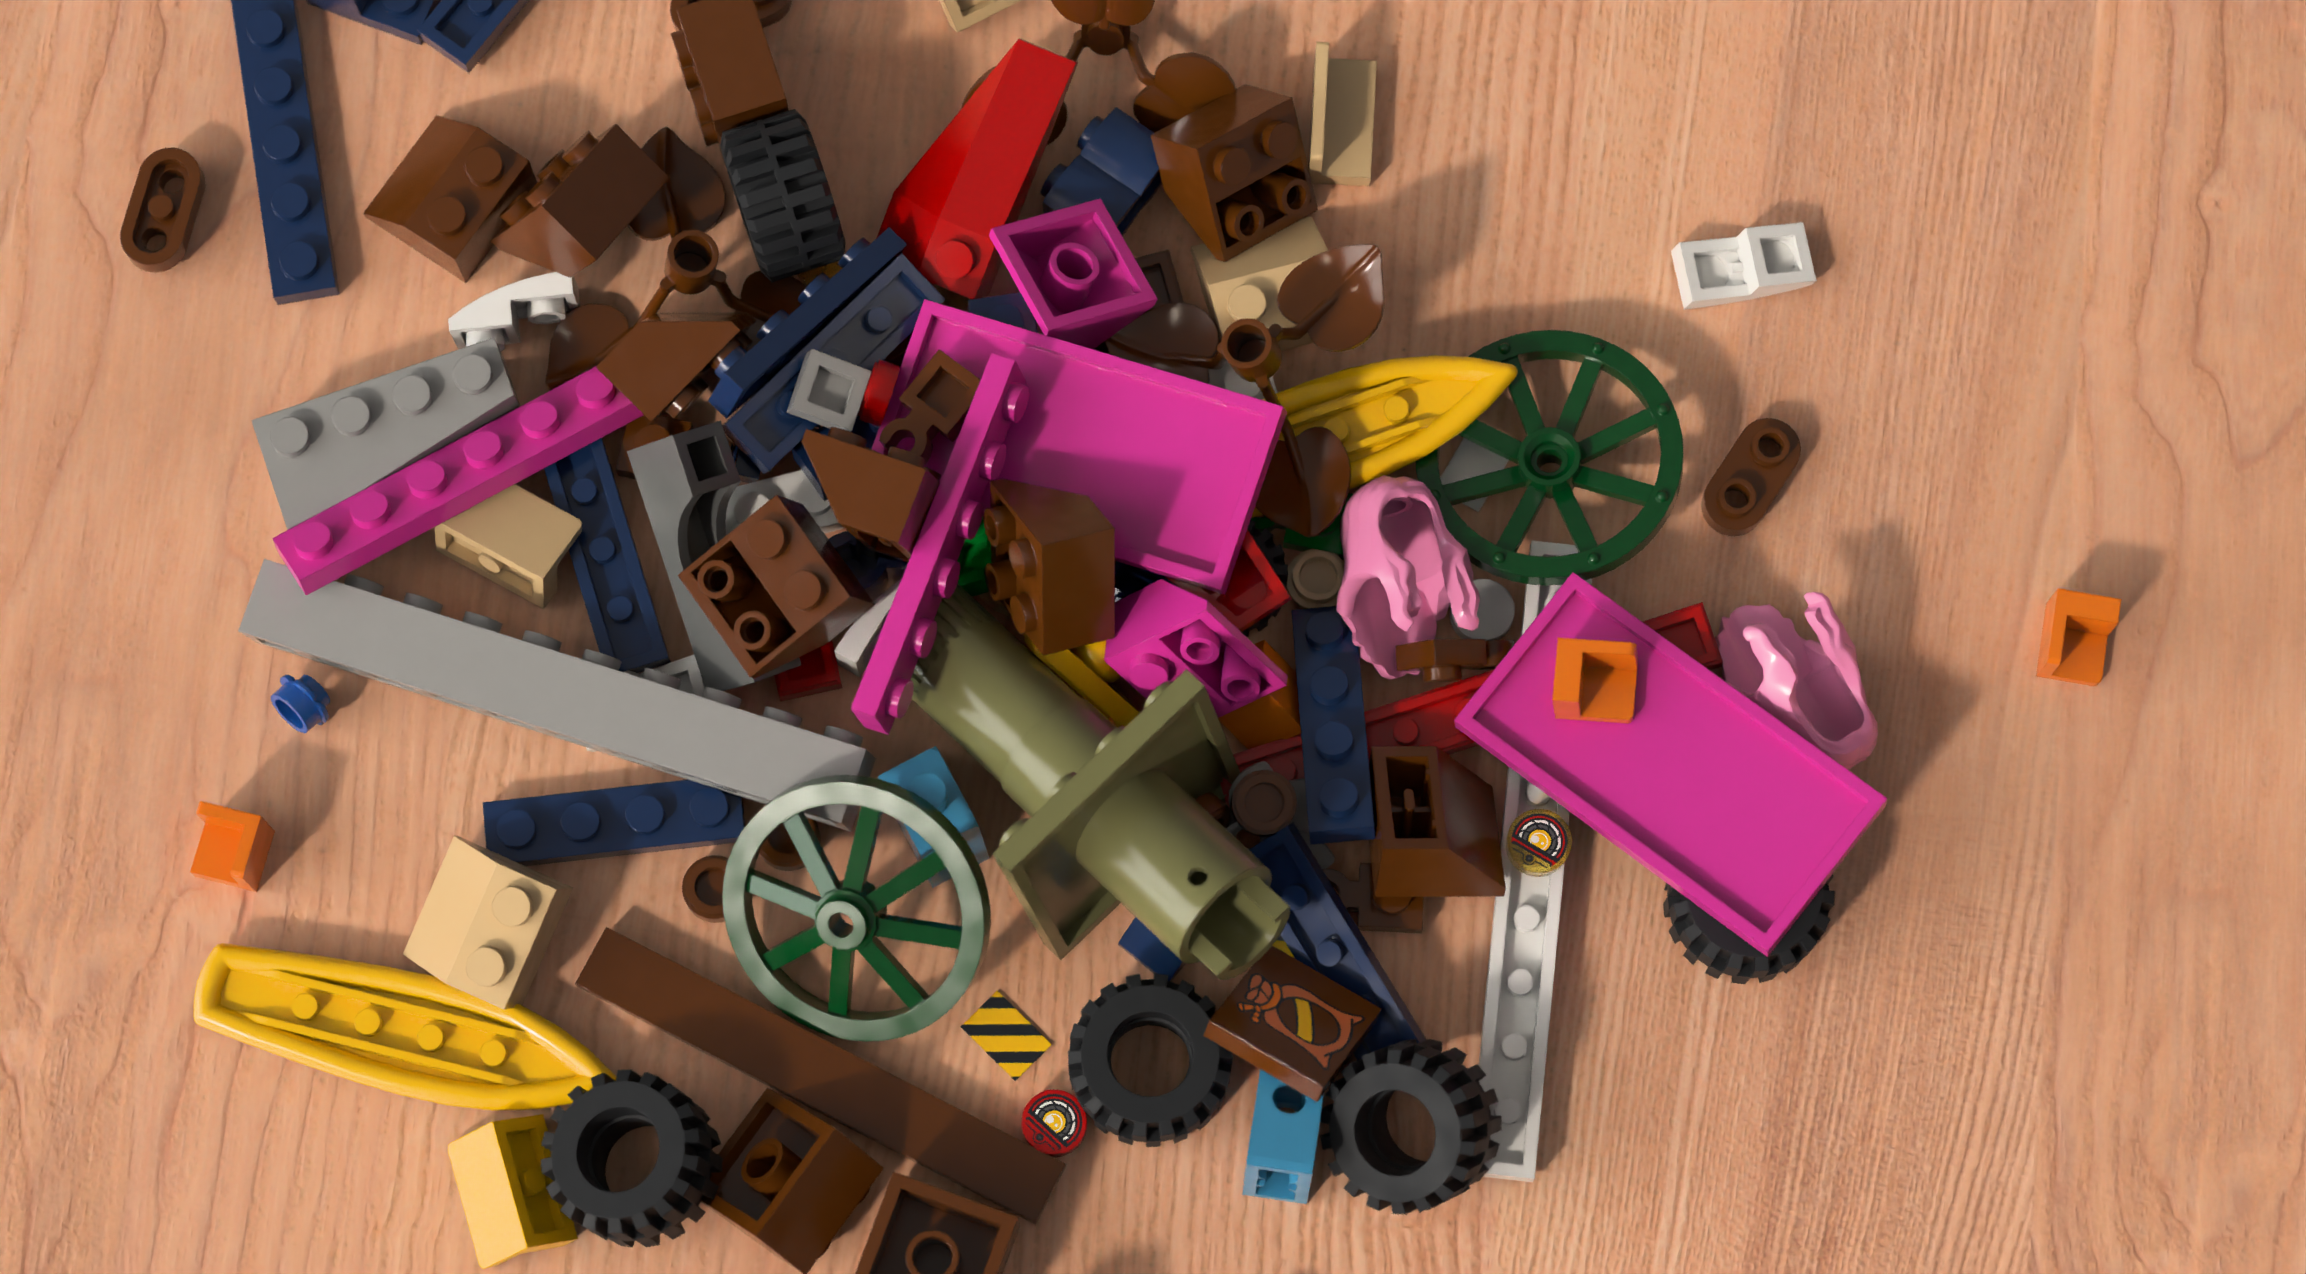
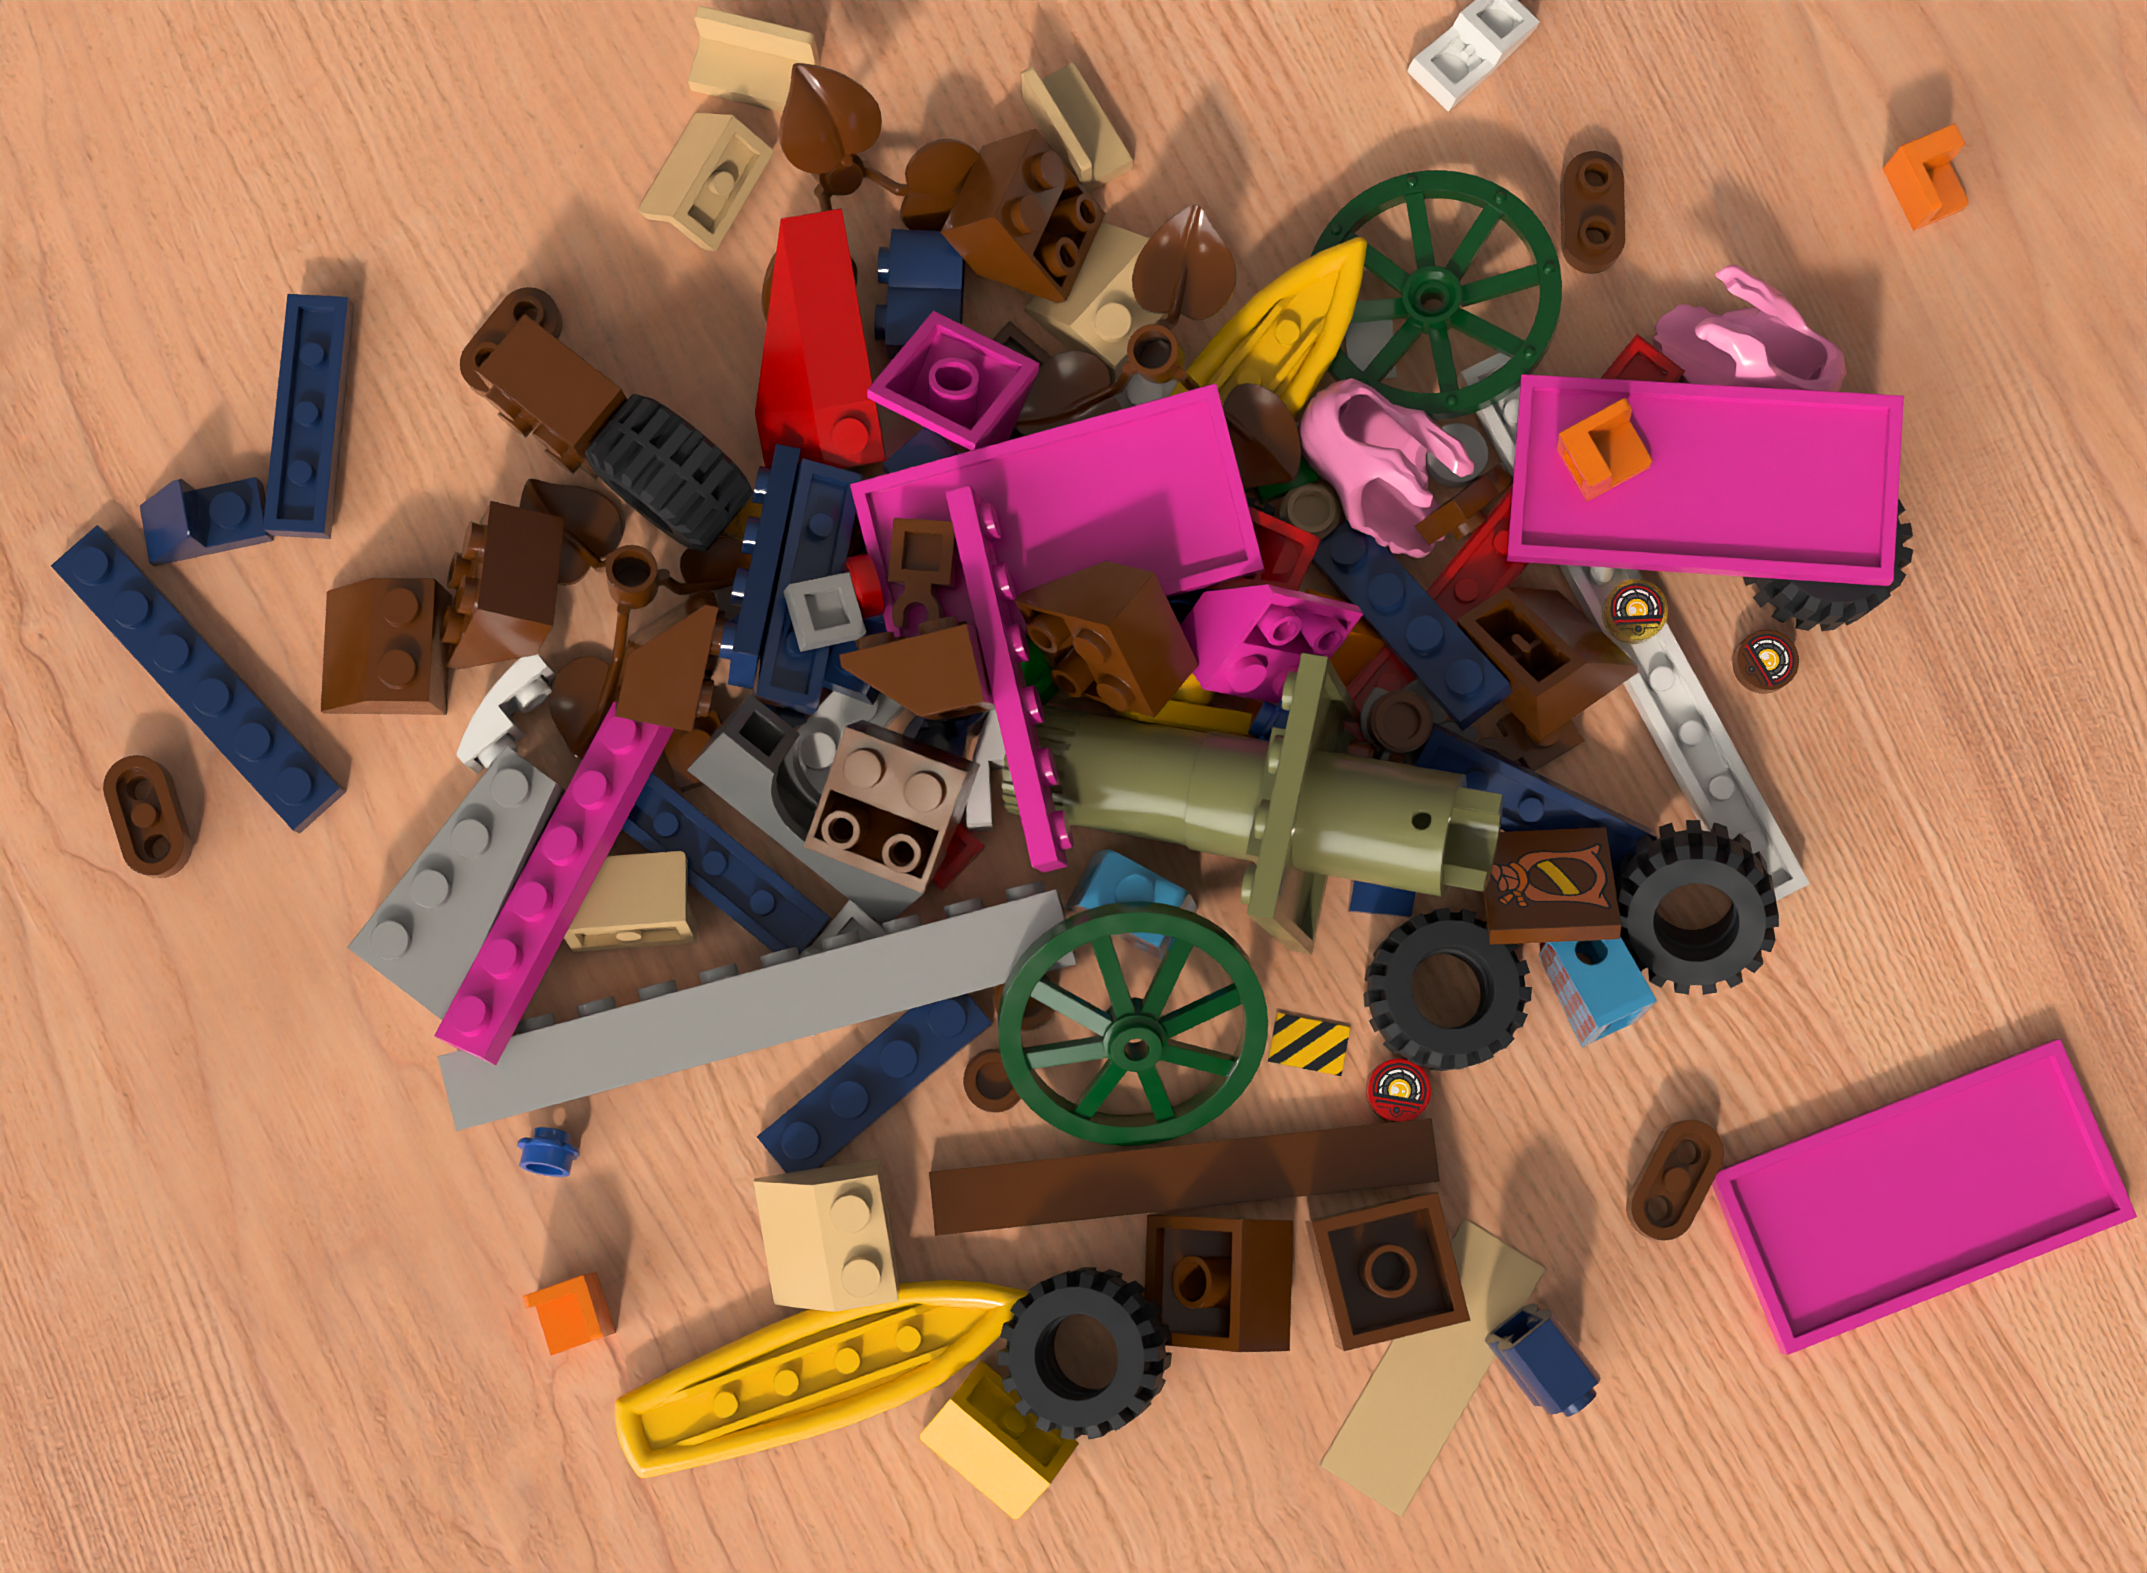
camera: 35 degrees left, 5 degrees up
(1634, 965) = (1765, 661): none -> tile

